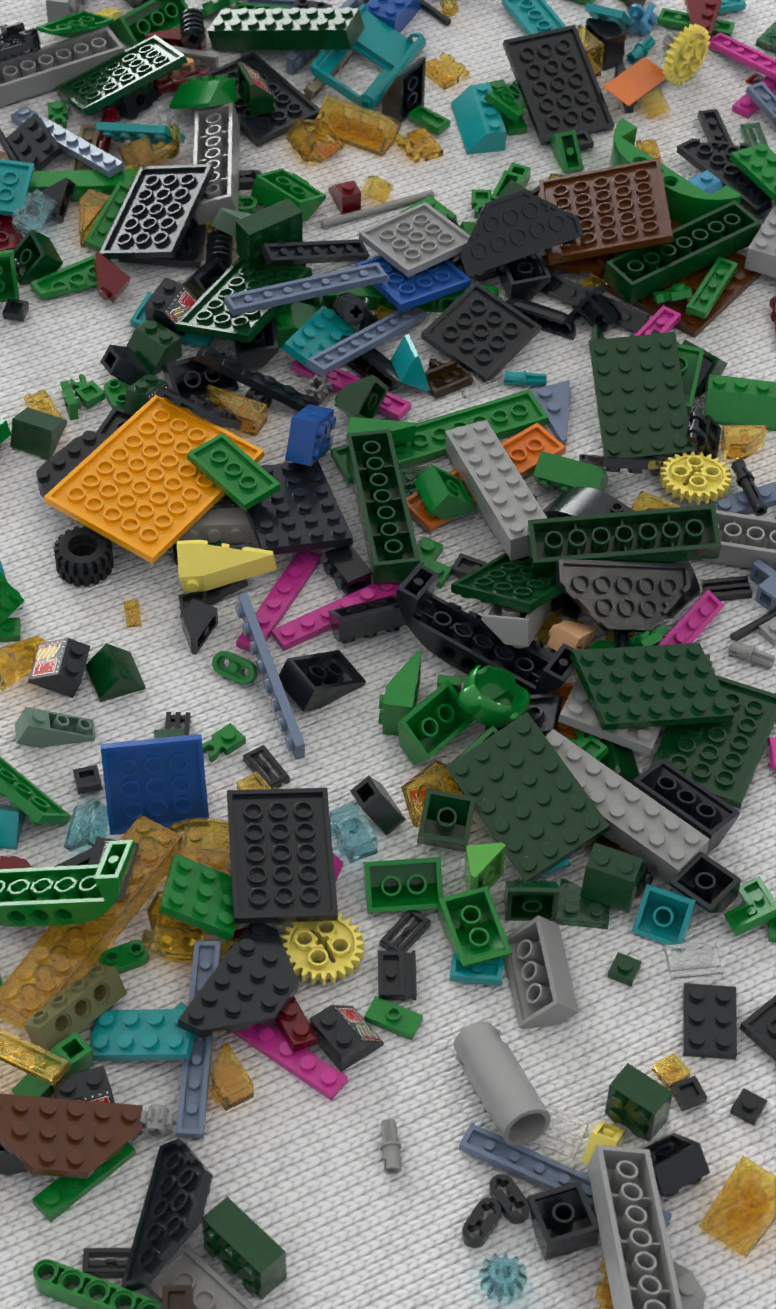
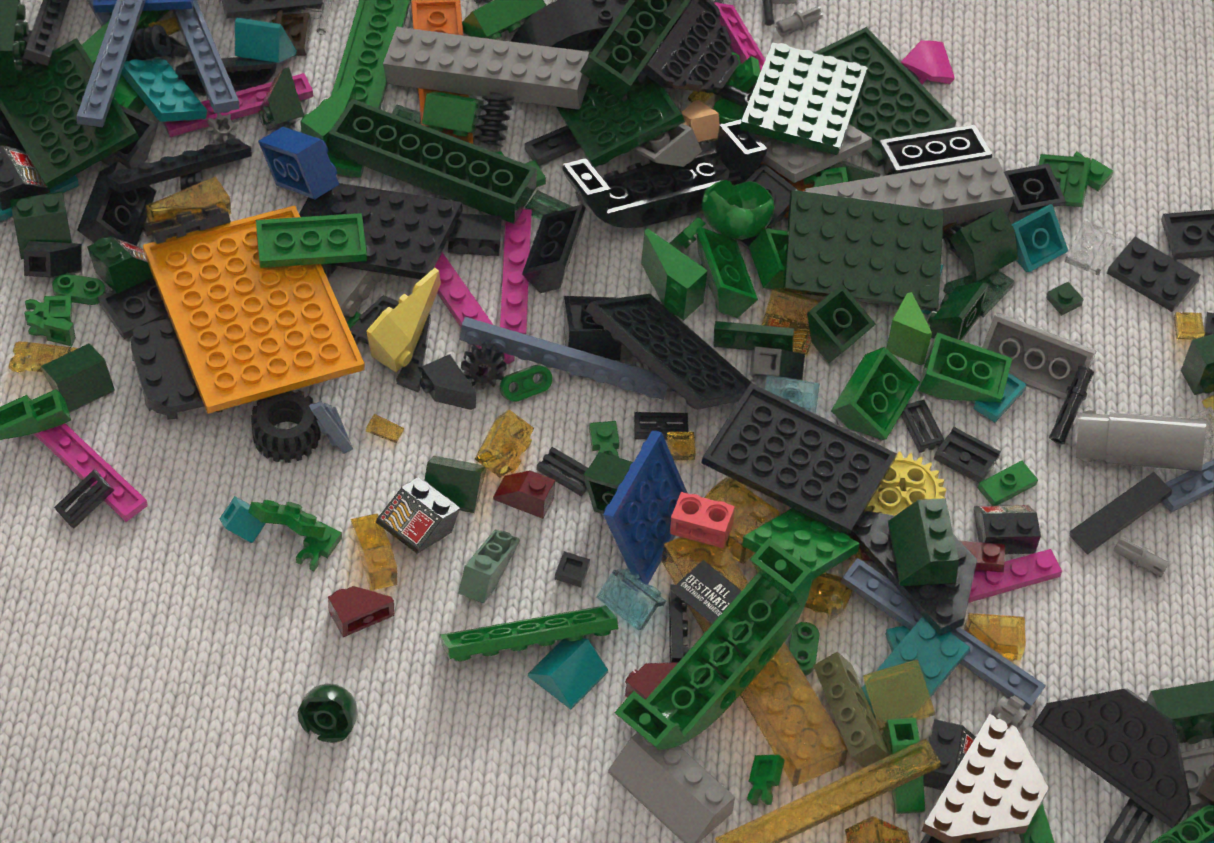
camera: 60 degrees left, 5 degrees up
(100, 577) = (331, 424): none -> sand blue wing
(112, 1031) = (898, 693): none -> clear yellow tile
(135, 720) = (527, 492): none -> dark red slope
(163, 675) = (502, 442): none -> clear yellow brick
(170, 820) = (697, 517): none -> coral brick
(224, 632) = (483, 374): none -> black gear
(254, 972) = (924, 544): none -> dark green slope
(325, 729) = (670, 350): none -> black plate
(392, 779) = (749, 336): none -> dark green plate
(422, 1109) = (1120, 513): none -> black tile
(459, 520) = (494, 118): none -> black piece
(512, 1016) = (1075, 395): none -> black pin

